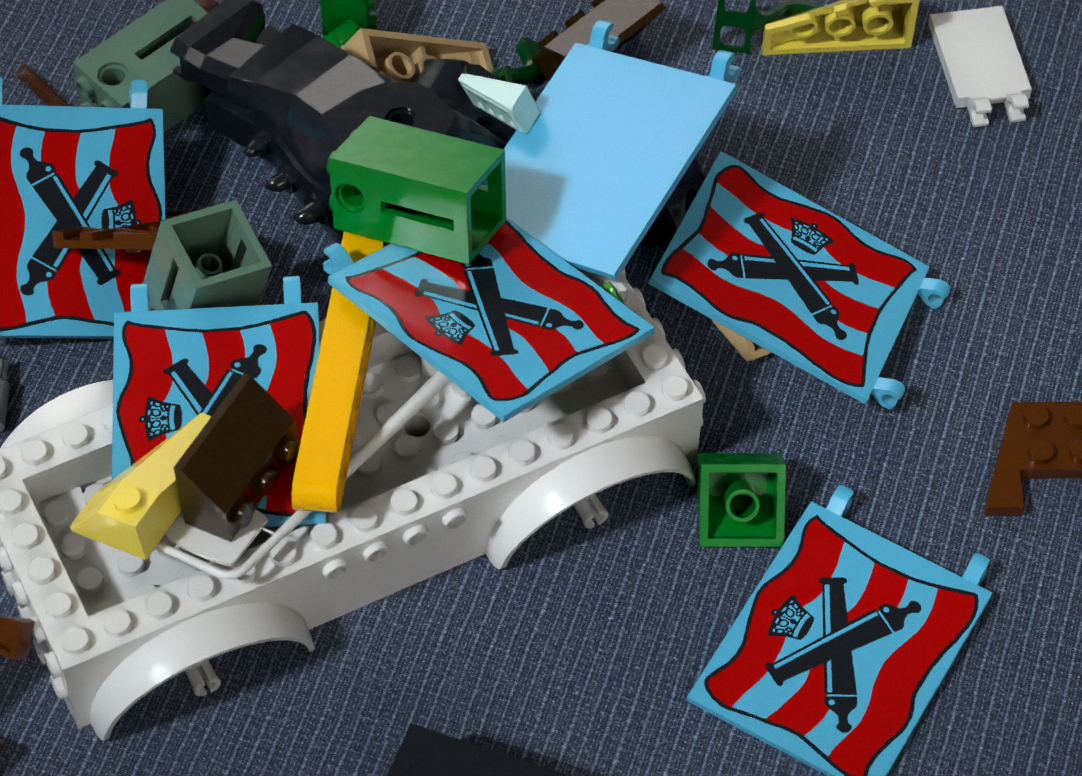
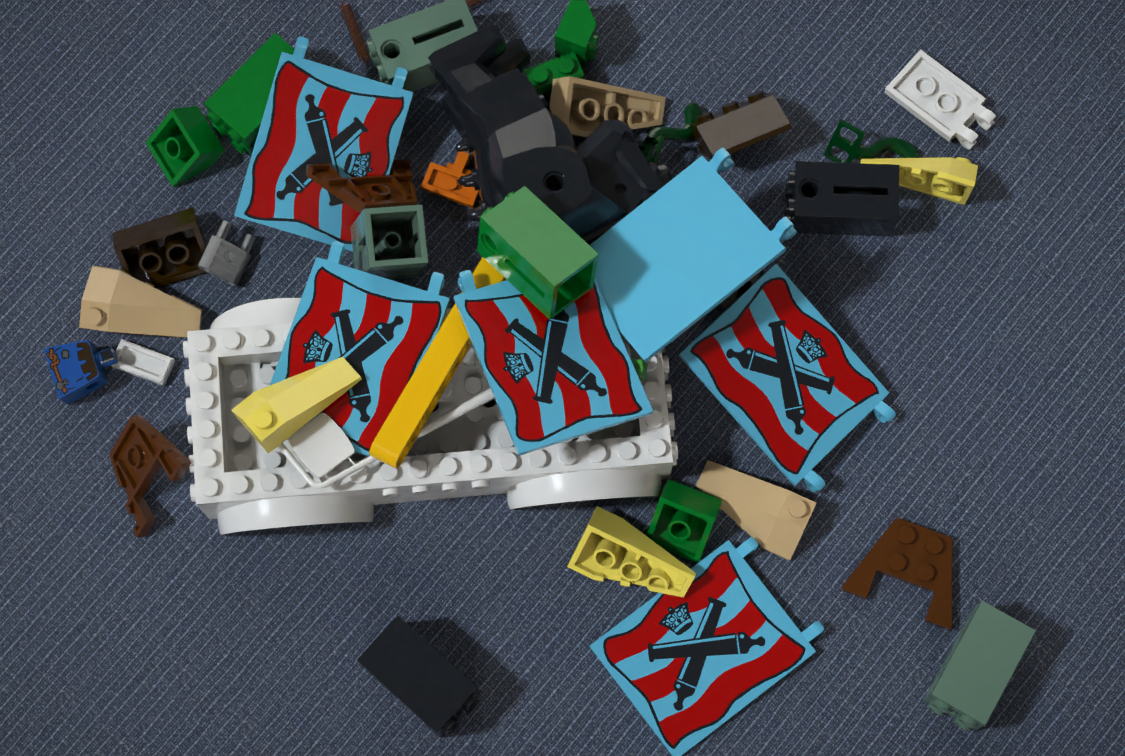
camera: 25 degrees right, 20 degrees up
(235, 460) = (345, 411): dark brown slope -> none
(267, 216) = (443, 181): none -> orange hinge
(503, 100) = (635, 190): light aqua slope -> none
(680, 565) = (624, 554): none -> light yellow wedge
(781, 69) = (843, 198): none -> black brick
(837, 447) = (762, 509): none -> tan wedge
(981, 62) = (1007, 237): white tile -> none

